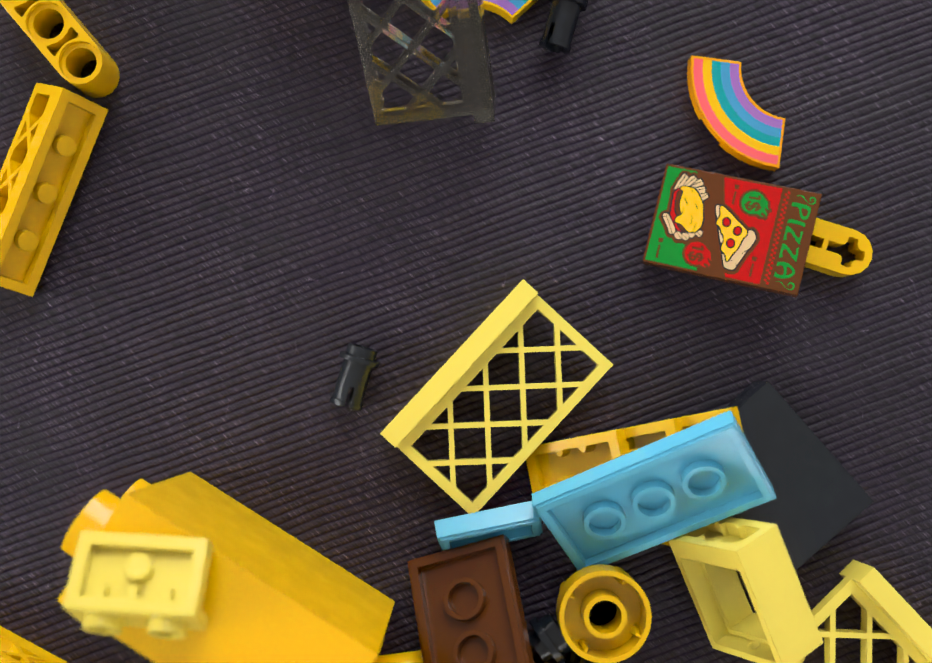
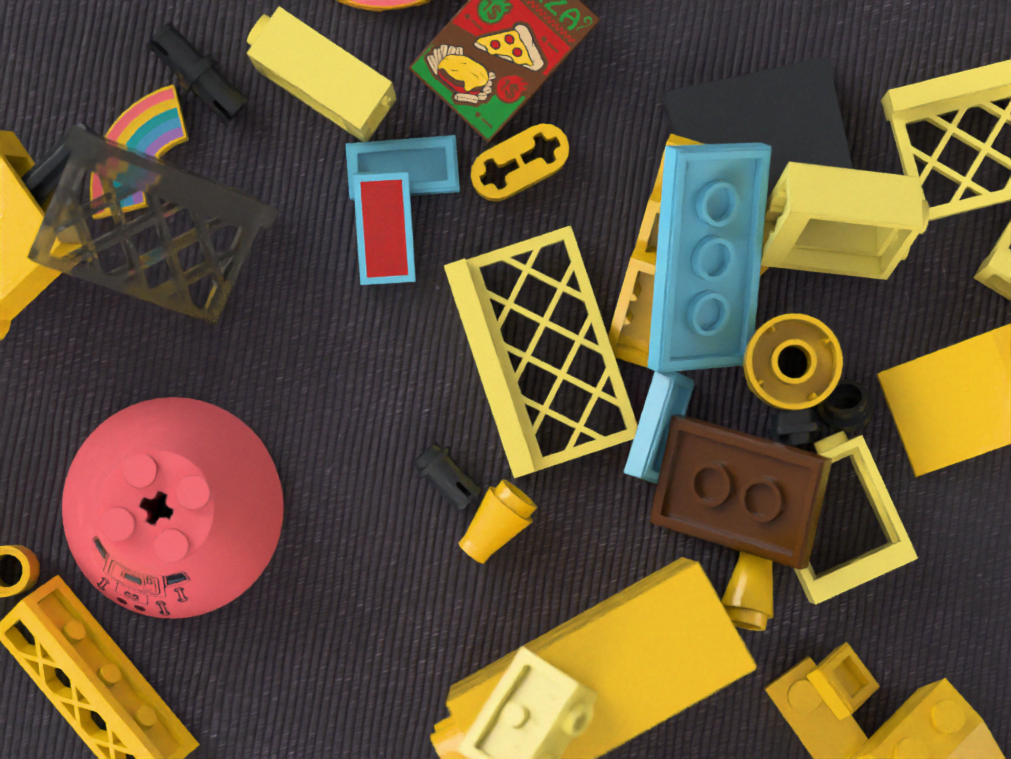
camera: 60 degrees left, 0 degrees up
(211, 172) = (221, 496): none -> coral cone
(342, 437) = (498, 519): none -> yellow cone
(528, 214) = (384, 227): none -> red tile
(583, 204) = (429, 159): none -> medium azure tile
(625, 90) = (320, 73): none -> light yellow window
(647, 285) = (513, 150): none -> yellow beam

